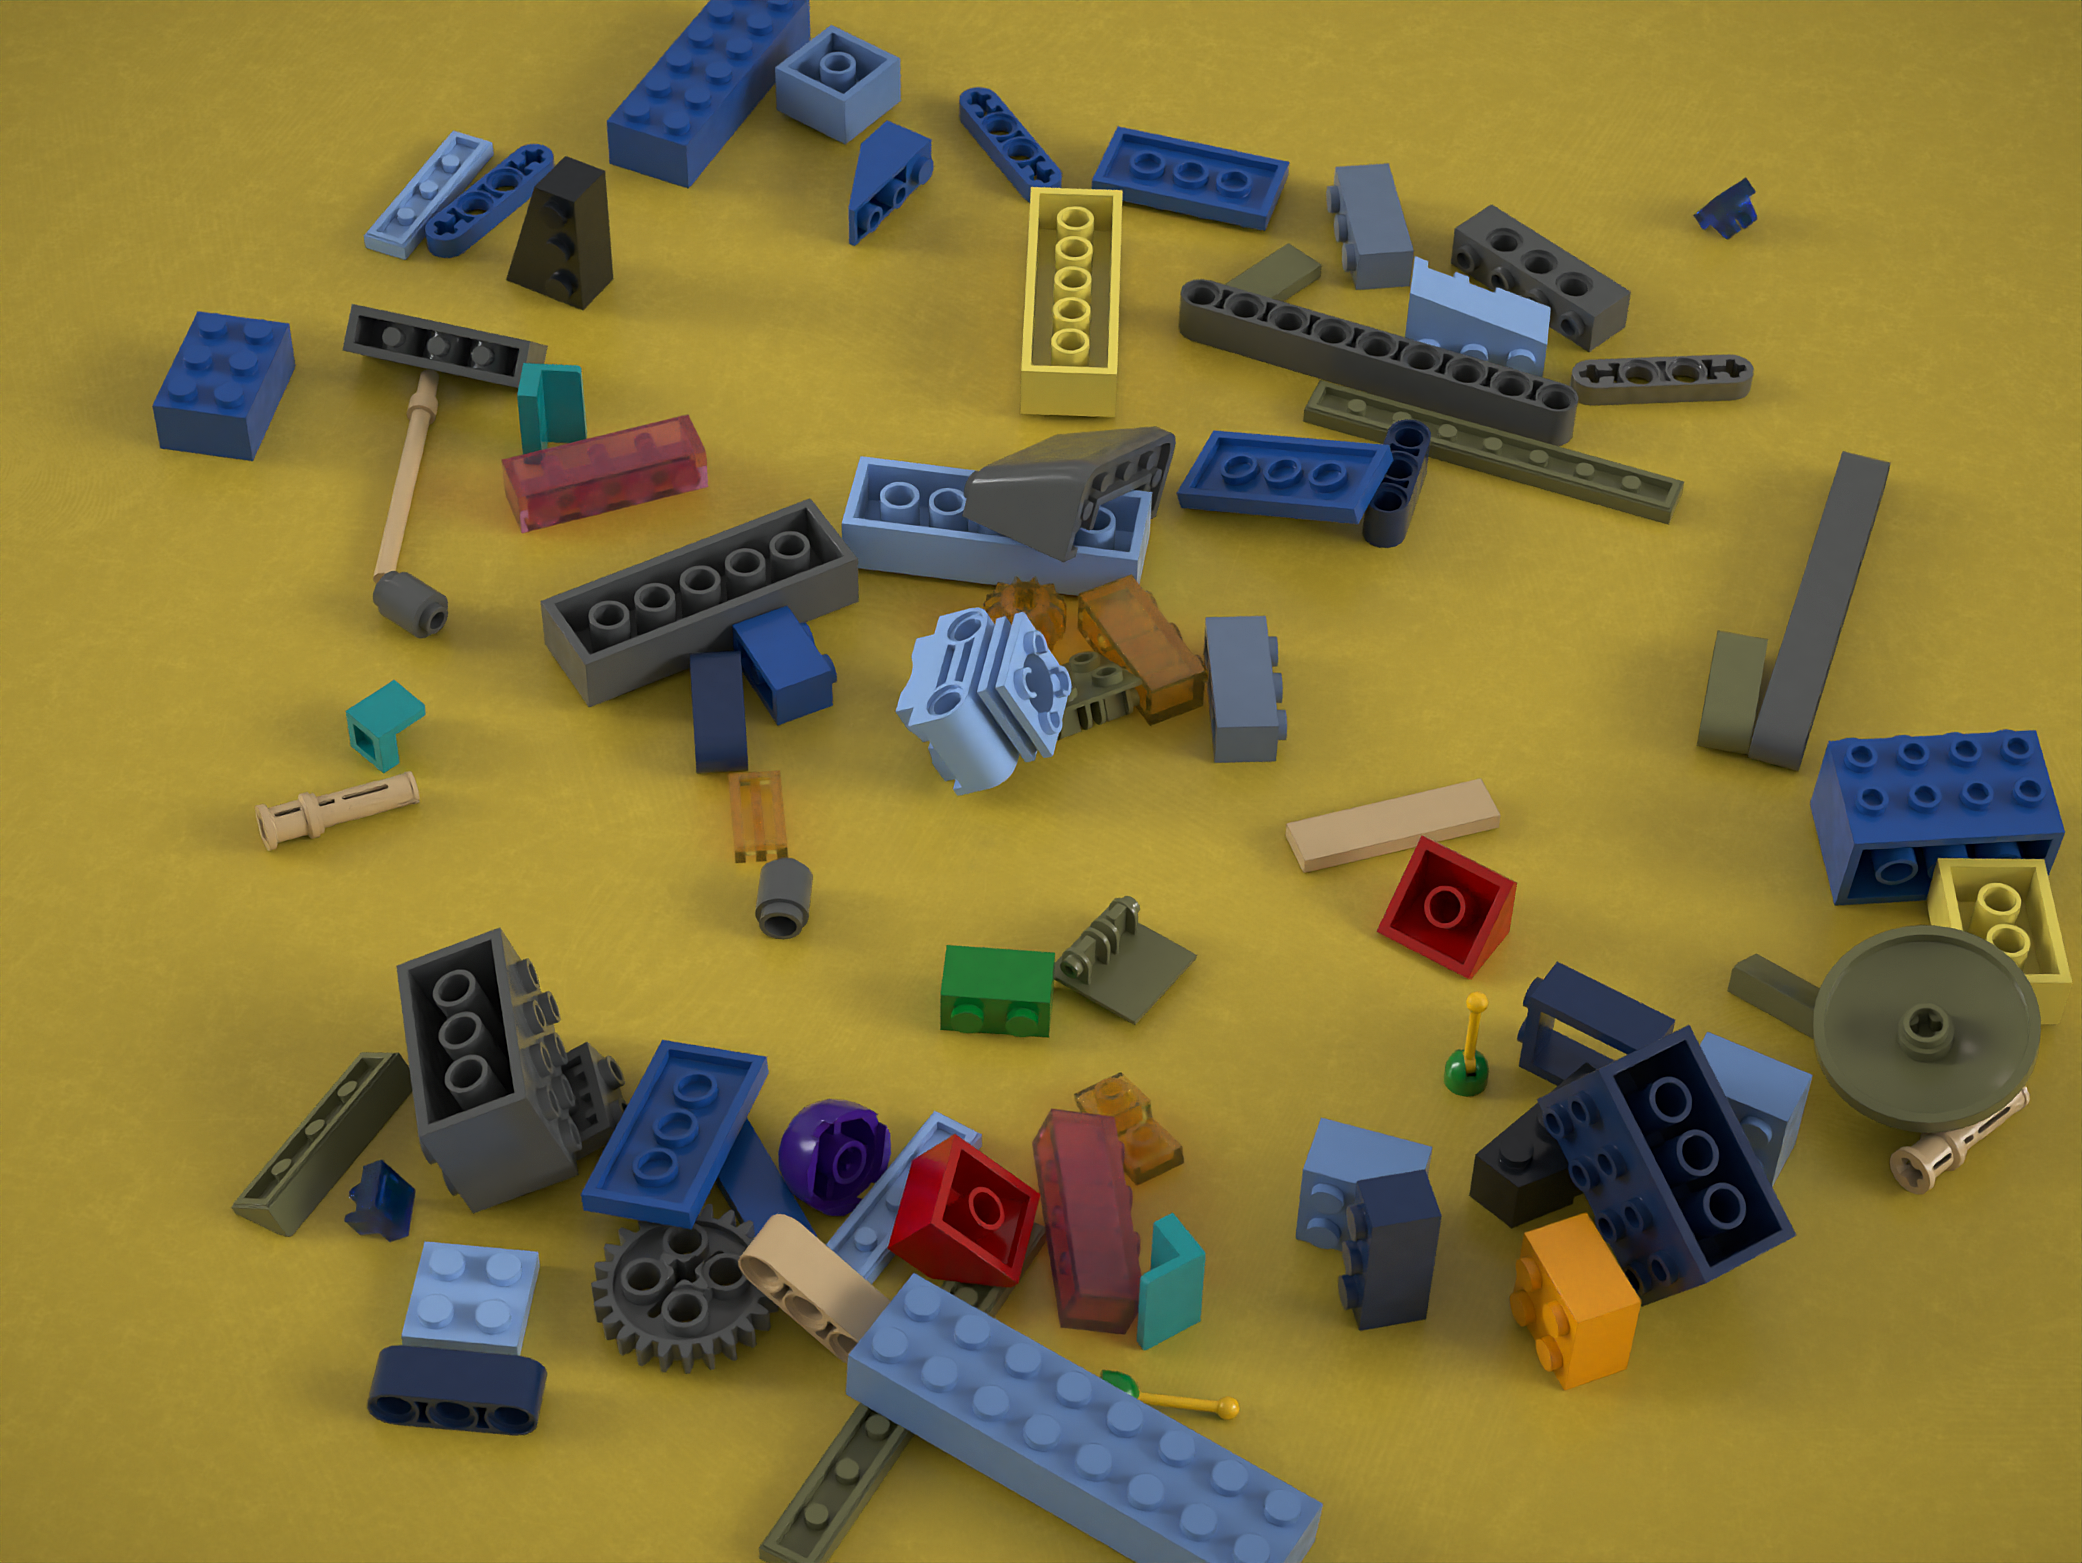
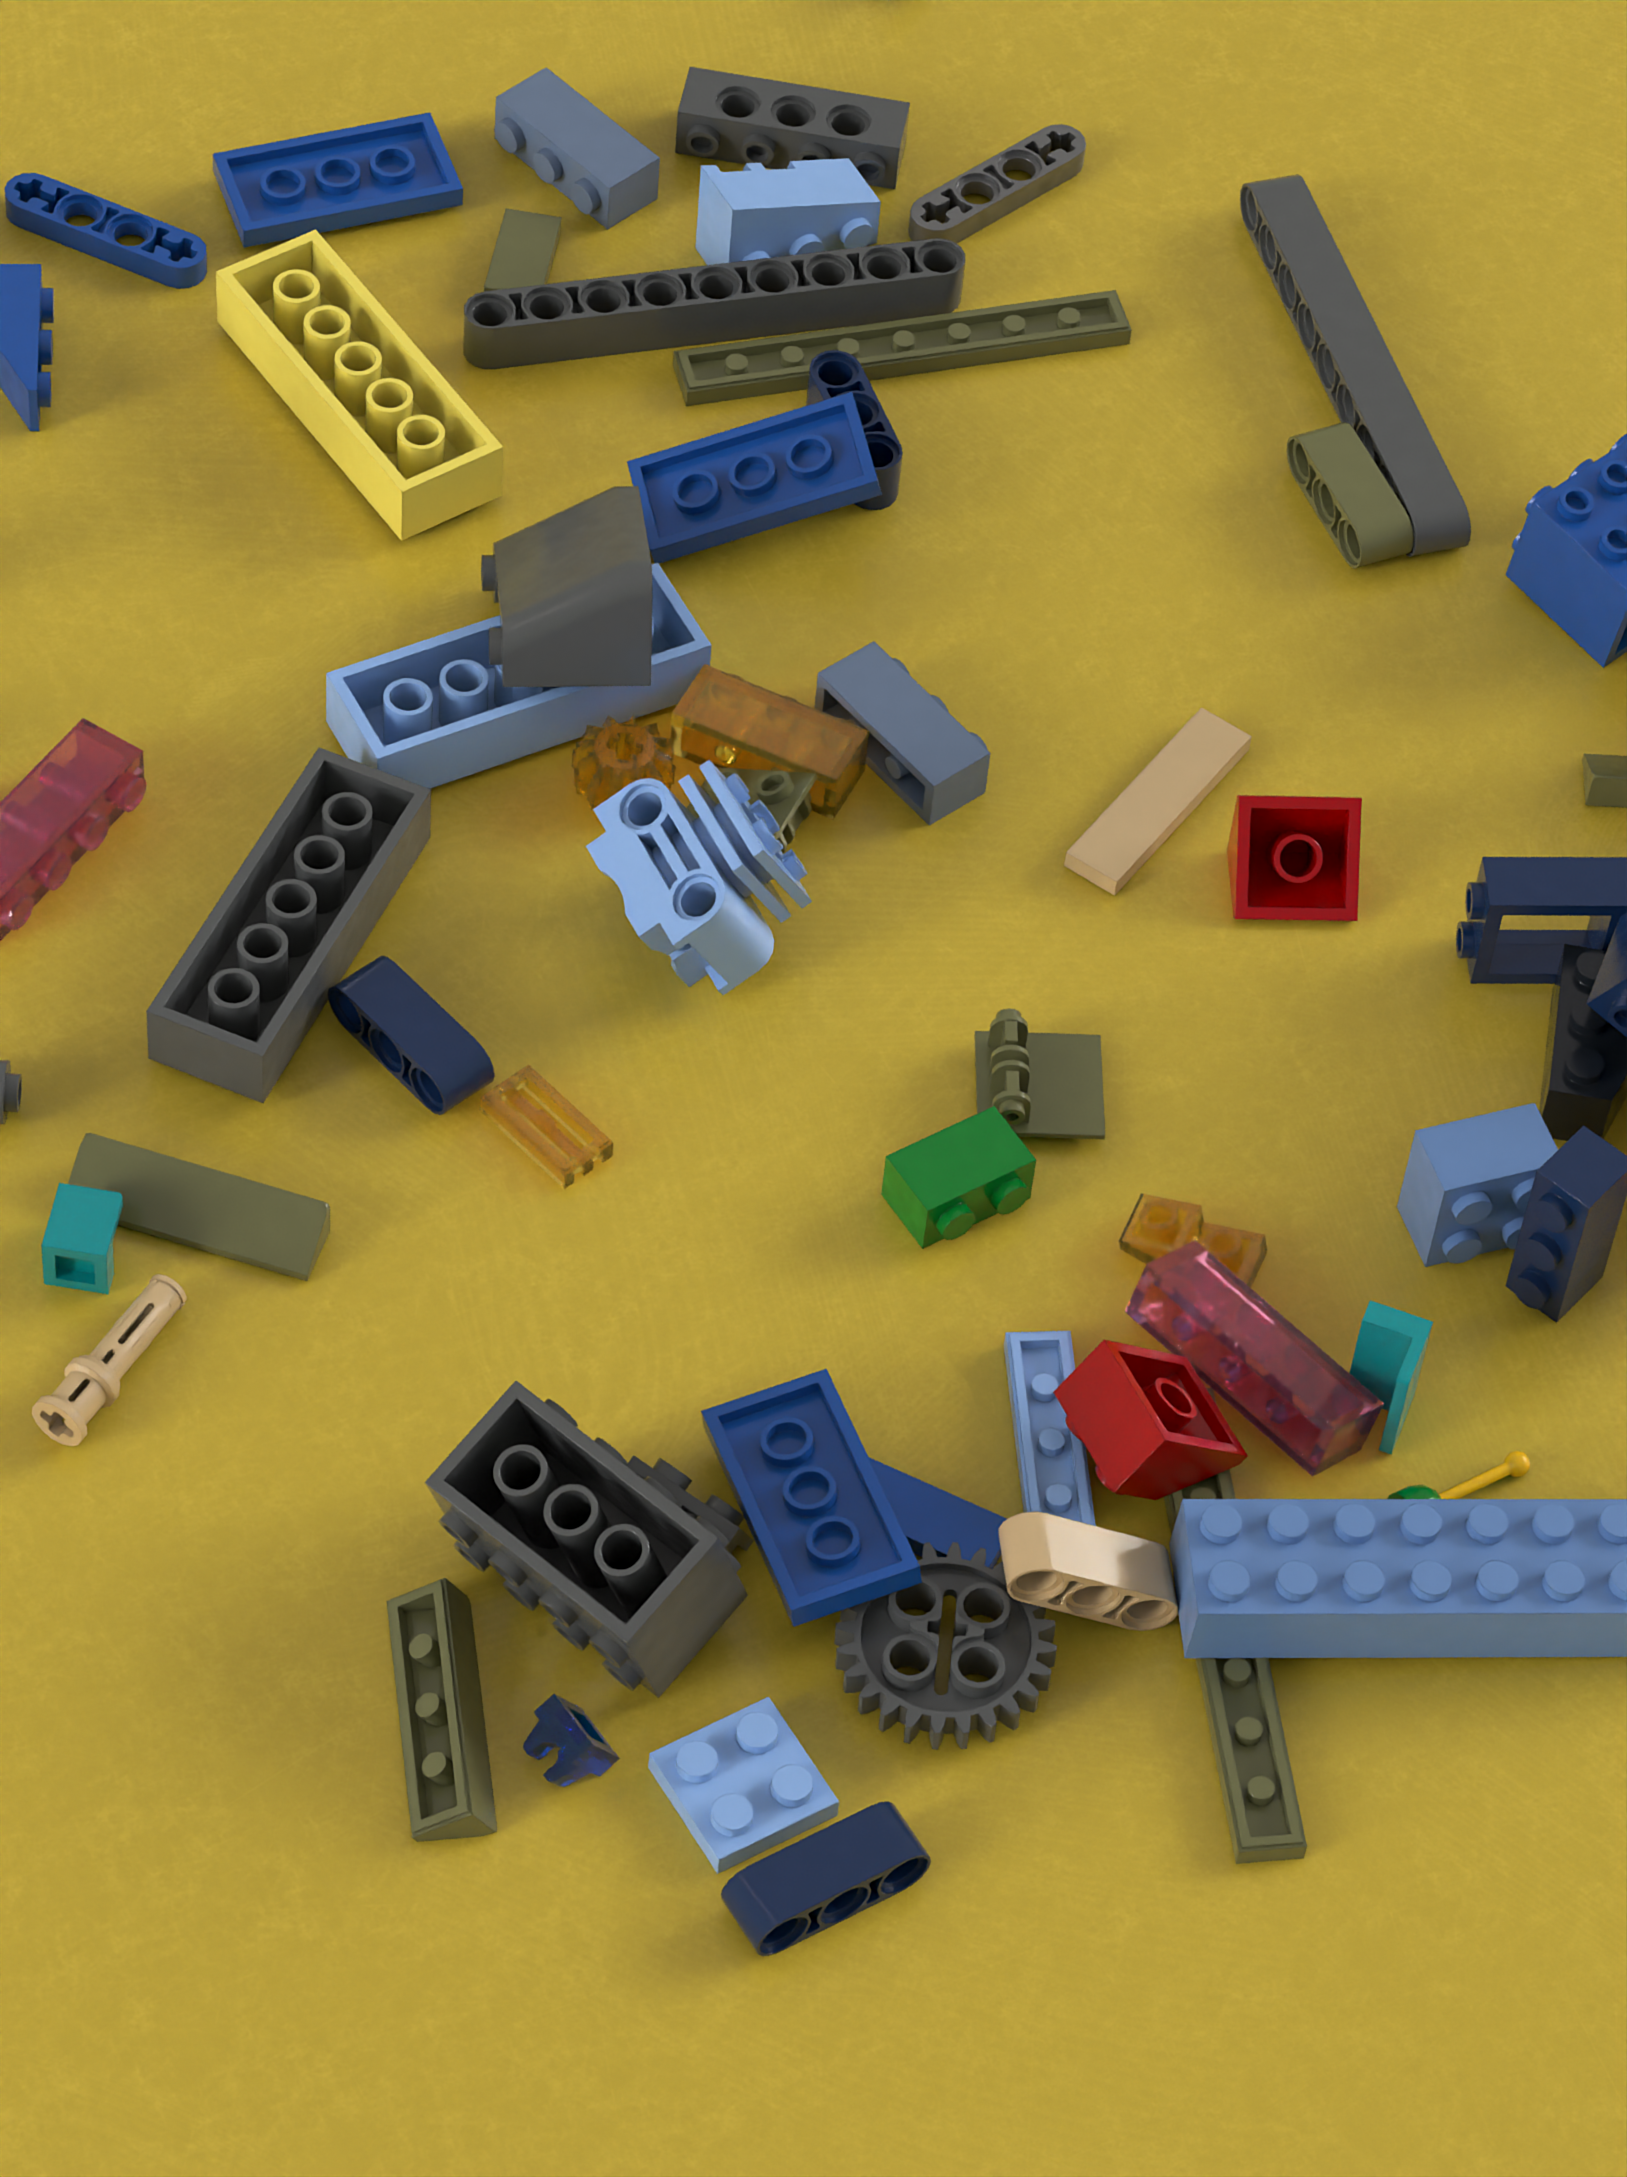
camera: 40 degrees left, 5 degrees up
(484, 749) = (206, 1206): none -> olive slope
(783, 898) = (664, 1197): dark grey brick -> none
(784, 665) = (435, 943): blue brick -> none
(833, 1154) = (962, 1431): dark purple cylinder -> none
(1469, 1059) = (1433, 1007): hinge -> none

